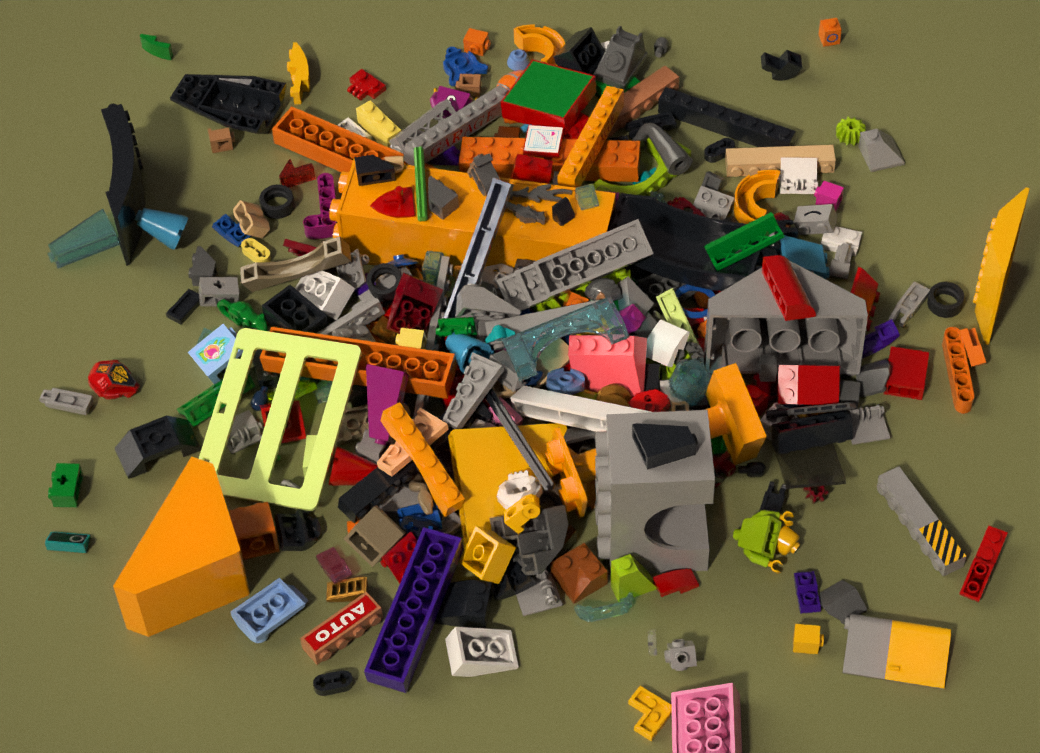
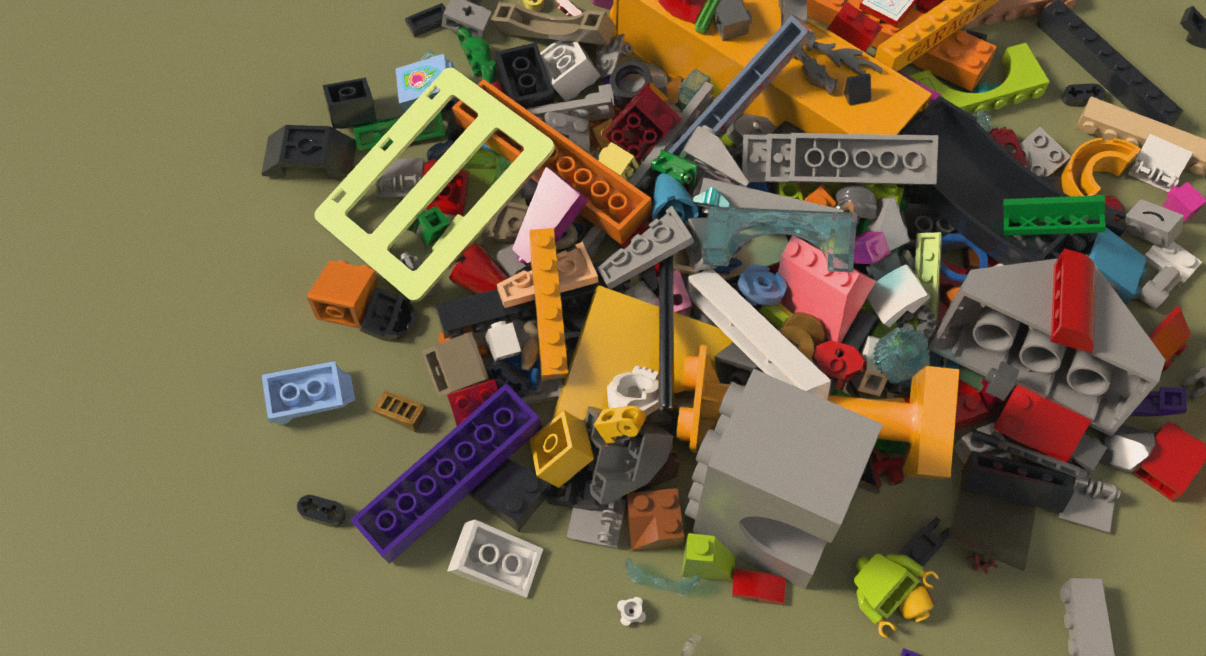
camera: 25 degrees right, 10 degrees up
(65, 485) = (198, 154): green brick -> none
(67, 400) = (255, 66): light grey hinge -> none
(67, 542) = (163, 214): teal slope -> none
(112, 380) = (309, 63): red helmet -> none
(168, 393) = (349, 103): none -> black brick
(185, 558) = (245, 288): light orange slope -> none
(291, 452) = (432, 225): none -> green brick
(333, 565) = (402, 374): clear pink slope -> none
(341, 628) = (365, 452): brick -> none
(400, 260) = (664, 67): blue dish -> none
(402, 501) = (502, 340): none -> white slope
(586, 197) = (895, 83): clear light blue slope -> none
(597, 634) = (636, 605): none -> white plate
(663, 443) = (800, 445): black slope -> none
(664, 120) = (1020, 33): black hinge -> none
(672, 154) = (1025, 75): dark grey animal -> none
(713, 181) = (1056, 127): dark grey tile -> none
(753, 469) = (923, 491): black cylinder -> none

